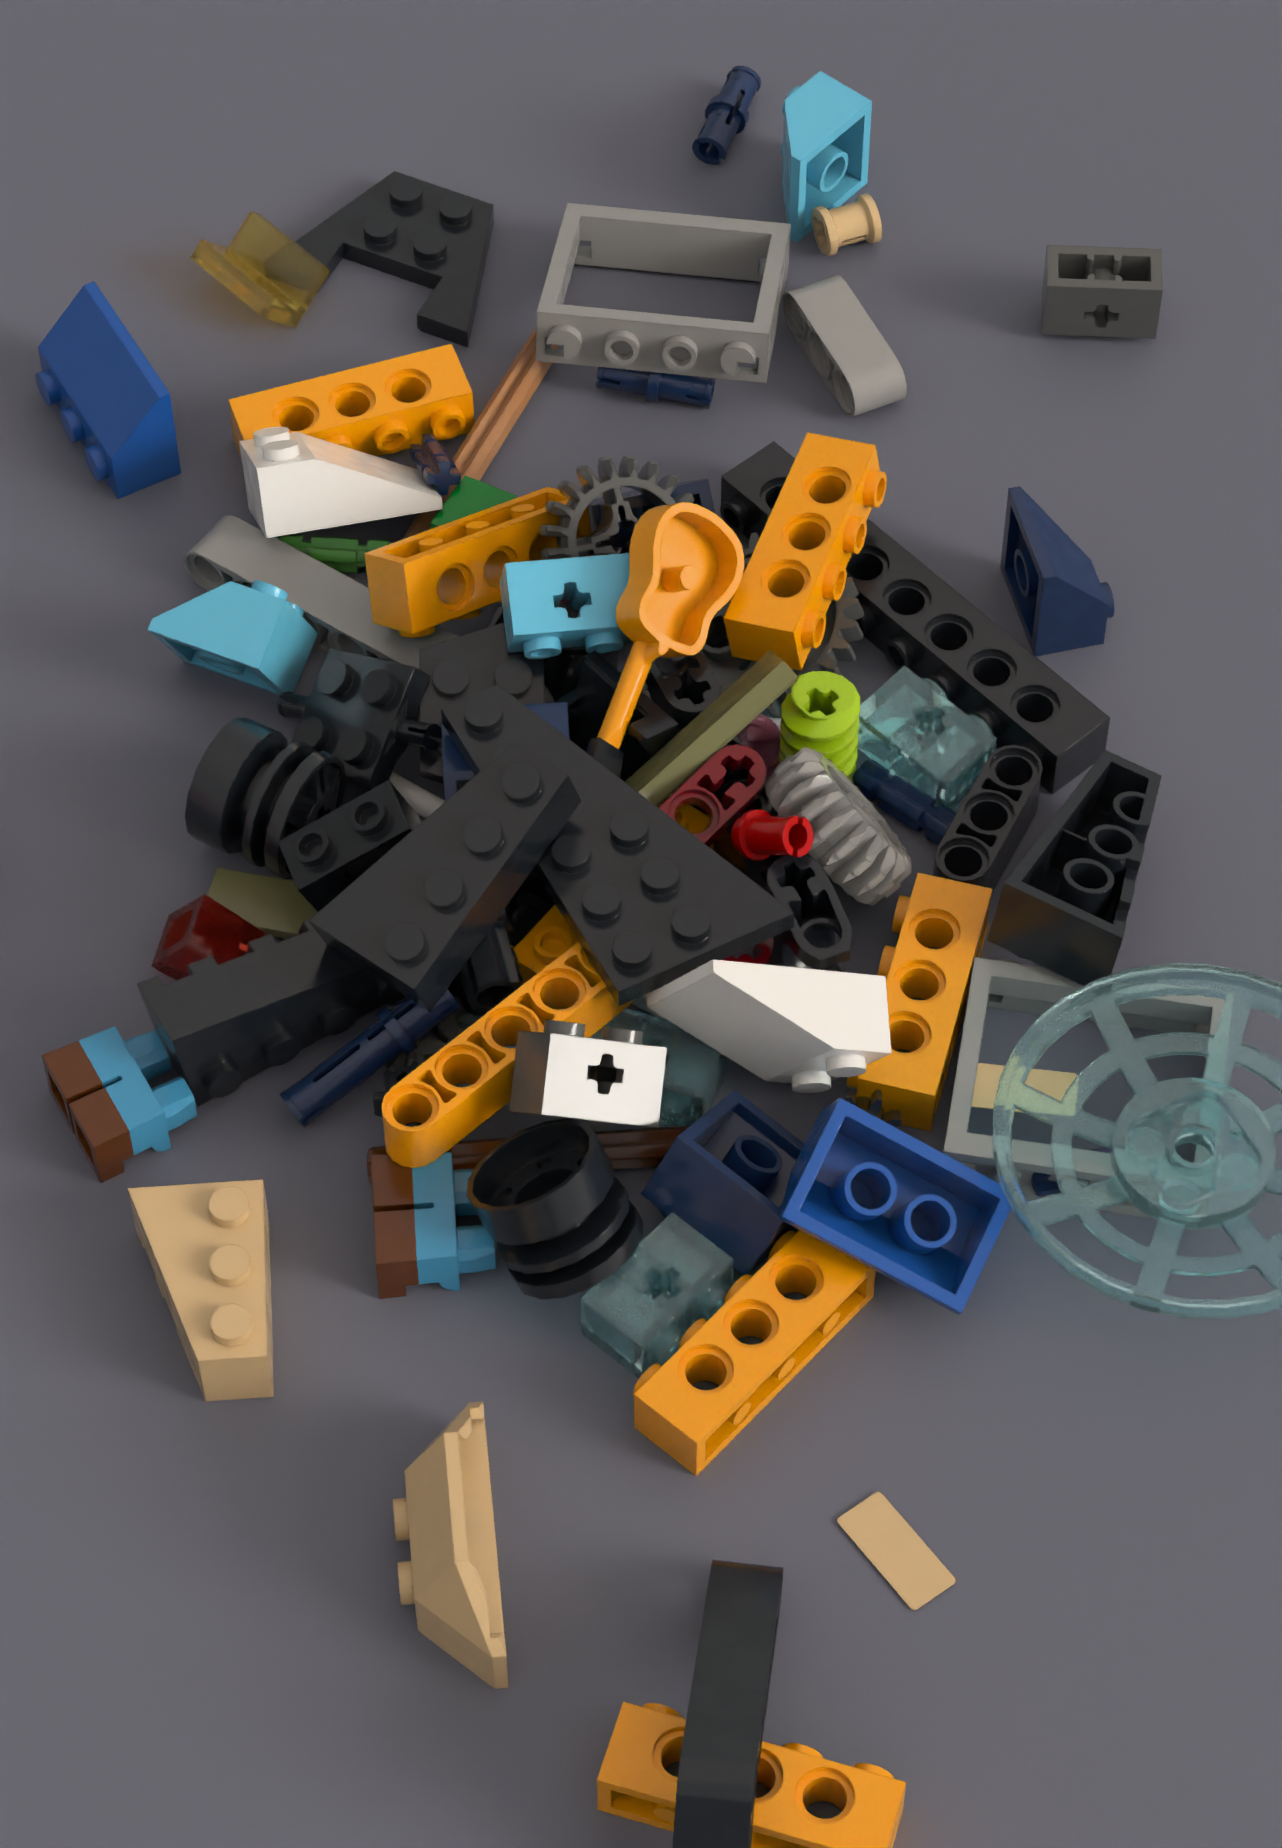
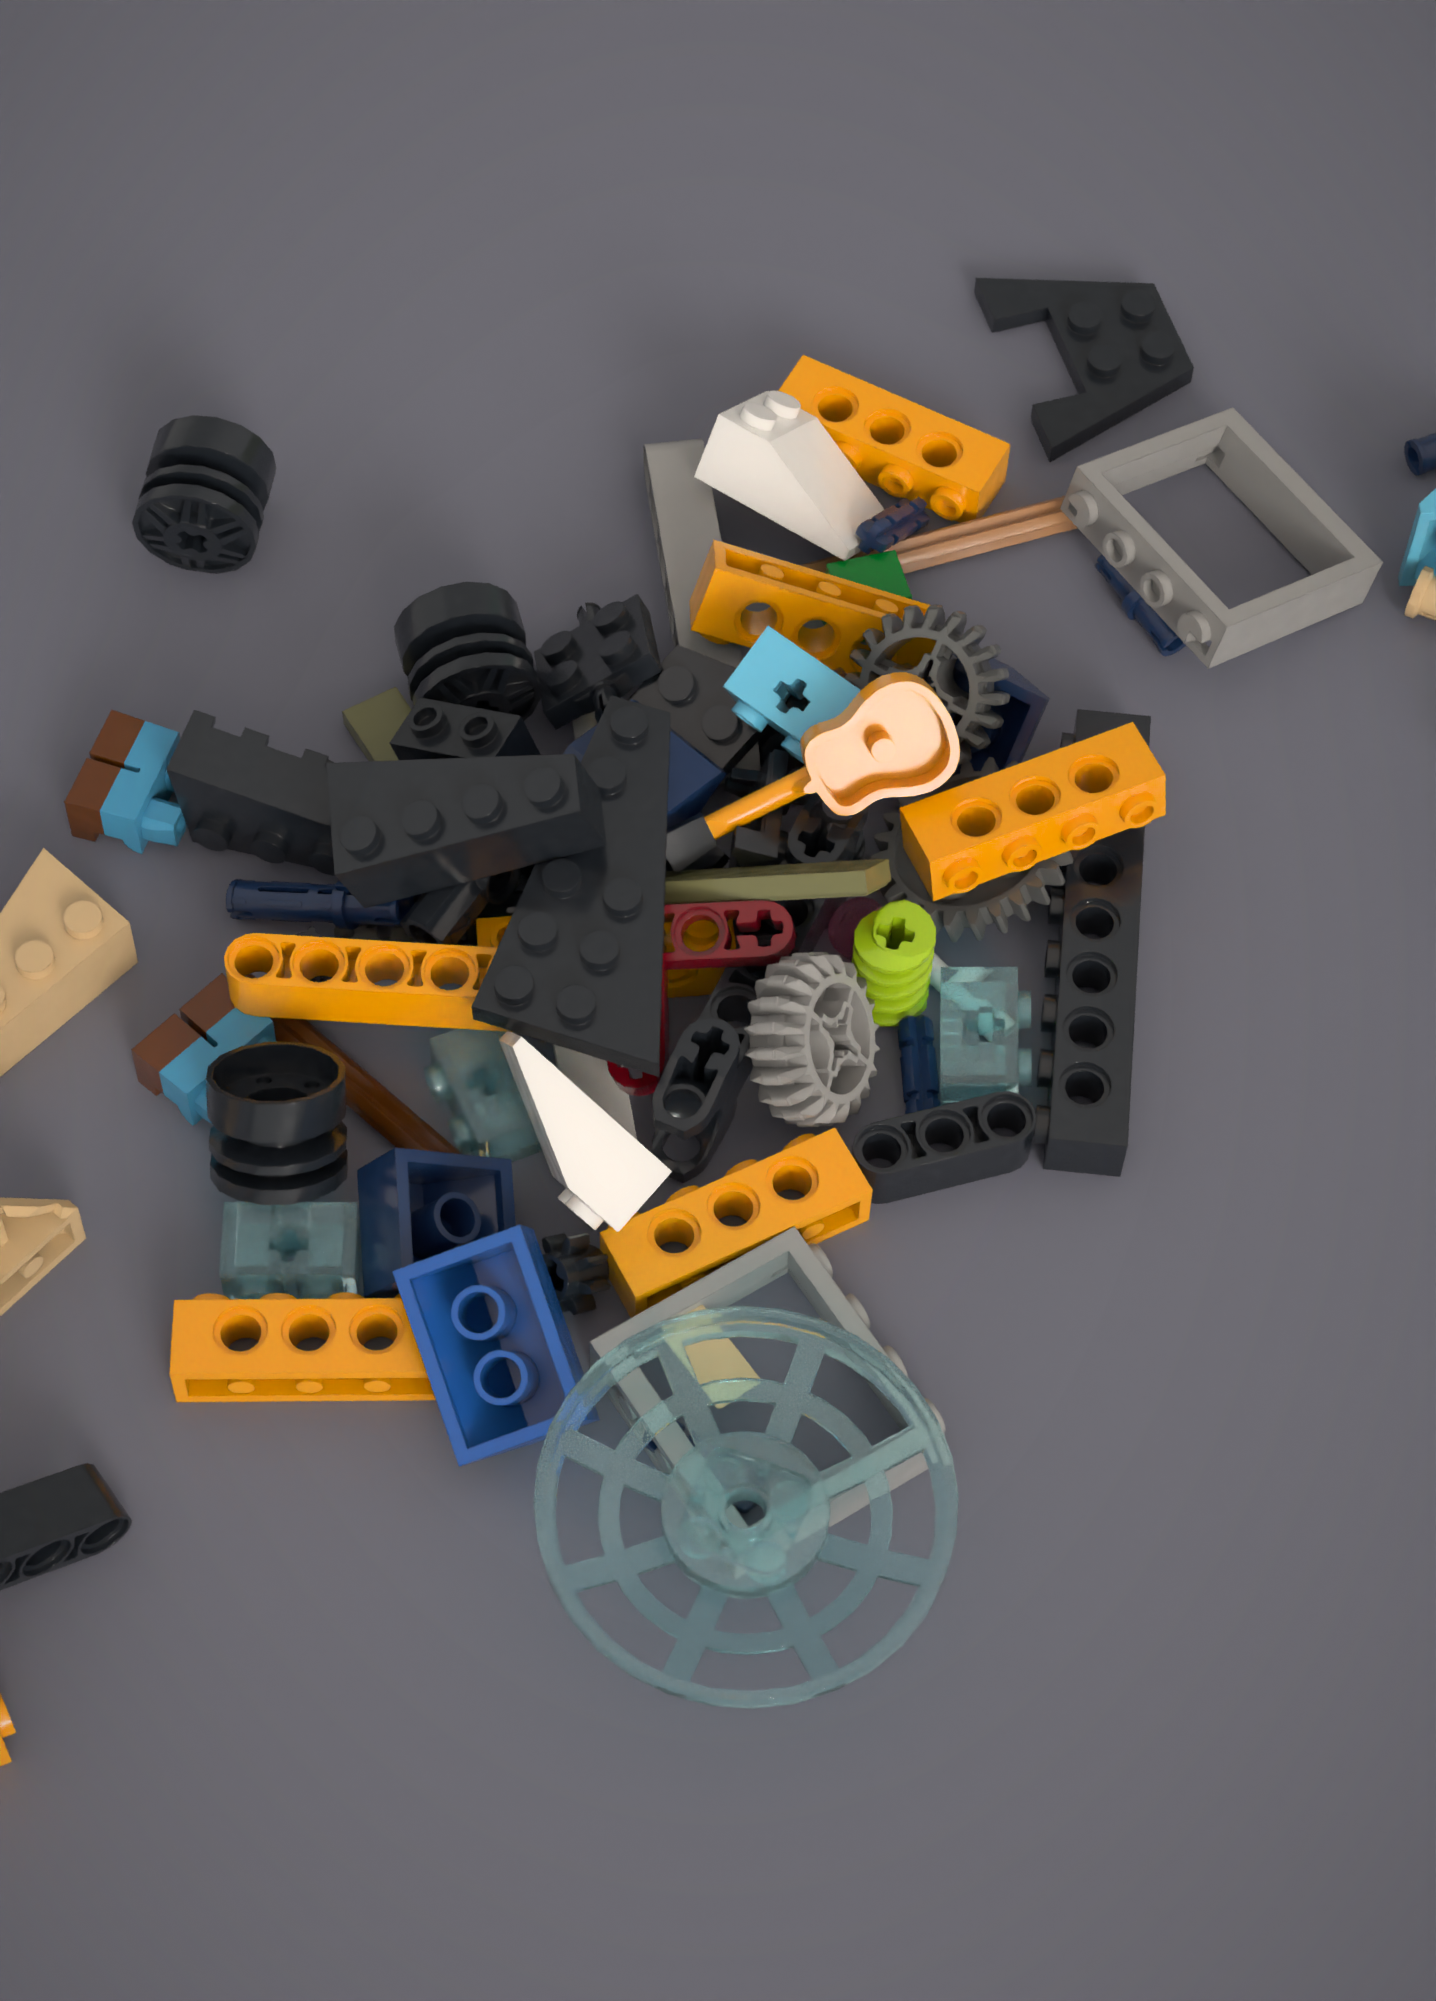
camera: 45 degrees right, 5 degrees up
(108, 396) = (730, 288): blue slope -> none
(202, 931) = (323, 727): clear red brick -> none
(241, 635) = (592, 535): medium azure slope -> none
(265, 270) = (956, 284): clear yellow panel -> none
(339, 553) = (753, 529): bright green axle -> none
(554, 1071) = (403, 1083): brick -> none
(761, 835) = (728, 992): red pin -> none
(844, 345) = (1317, 692): light grey beam -> none
(896, 1550) = (233, 1586): tan sticker -> none
(1051, 581) = (1227, 1007): dark blue slope -> none
(1078, 879) = (941, 1238): black wedge -> none

